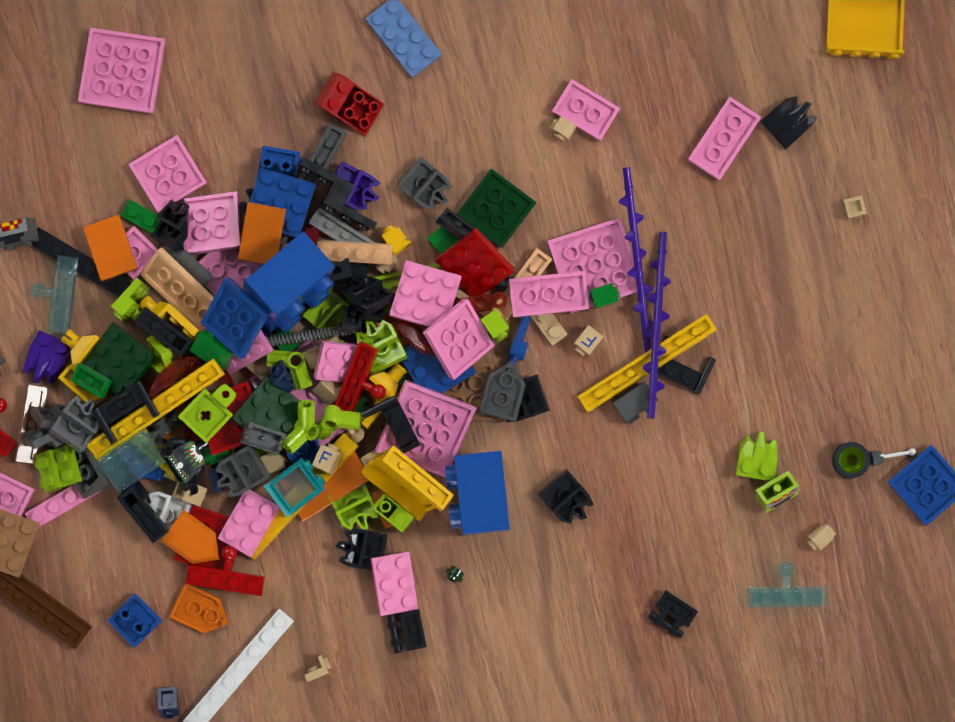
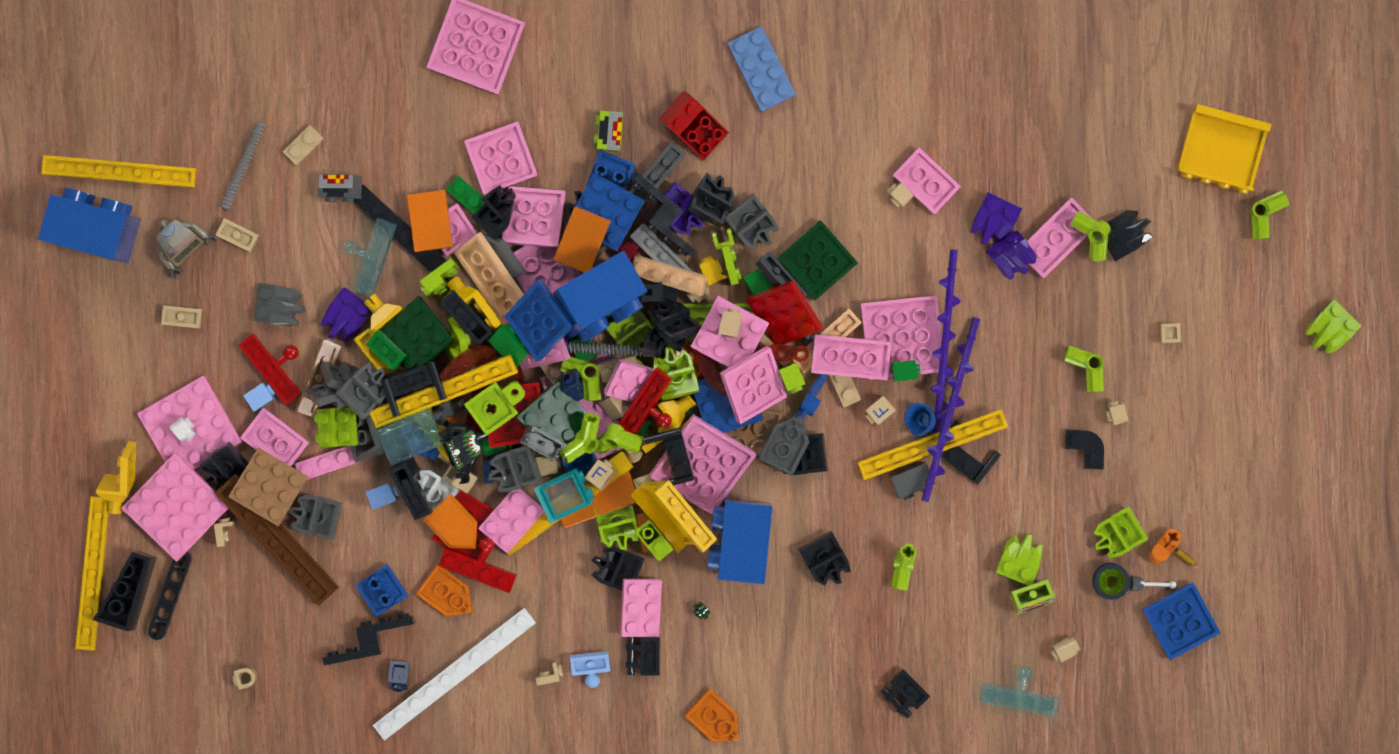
camera: 15 degrees right, 5 degrees up
(56, 560) = (316, 516): none -> dark grey plate
(116, 526) = (382, 495): none -> medium blue slope
(131, 671) = (368, 639): none -> black bracket
(268, 126) = (610, 131): none -> brick
(355, 651) = (590, 664): none -> light blue plate
(381, 171) = (711, 200): none -> black plate
(409, 222) = (729, 257): none -> lime plate
(423, 283) = (730, 323): none -> tan brick
(490, 678) = (714, 718): none -> orange tile
(629, 340) = (919, 419): none -> blue helmet
(644, 488) = (903, 565): none -> lime piece
(660, 133) = (995, 218): none -> dark purple plate
(684, 163) = (1012, 255): none -> dark purple plate
(753, 120) = (1091, 228): none -> lime piece
(789, 263) = (1081, 358): none -> lime piece
(802, 331) = (1090, 443): none -> black plate
(819, 295) = (1116, 413): none -> tan plate
(849, 411) = (1120, 533): none -> lime plate
(900, 408) = (1171, 540): none -> orange piece
(917, 421) = (1187, 558): none -> yellow piece
(923, 64) = (1270, 204): none -> lime piece

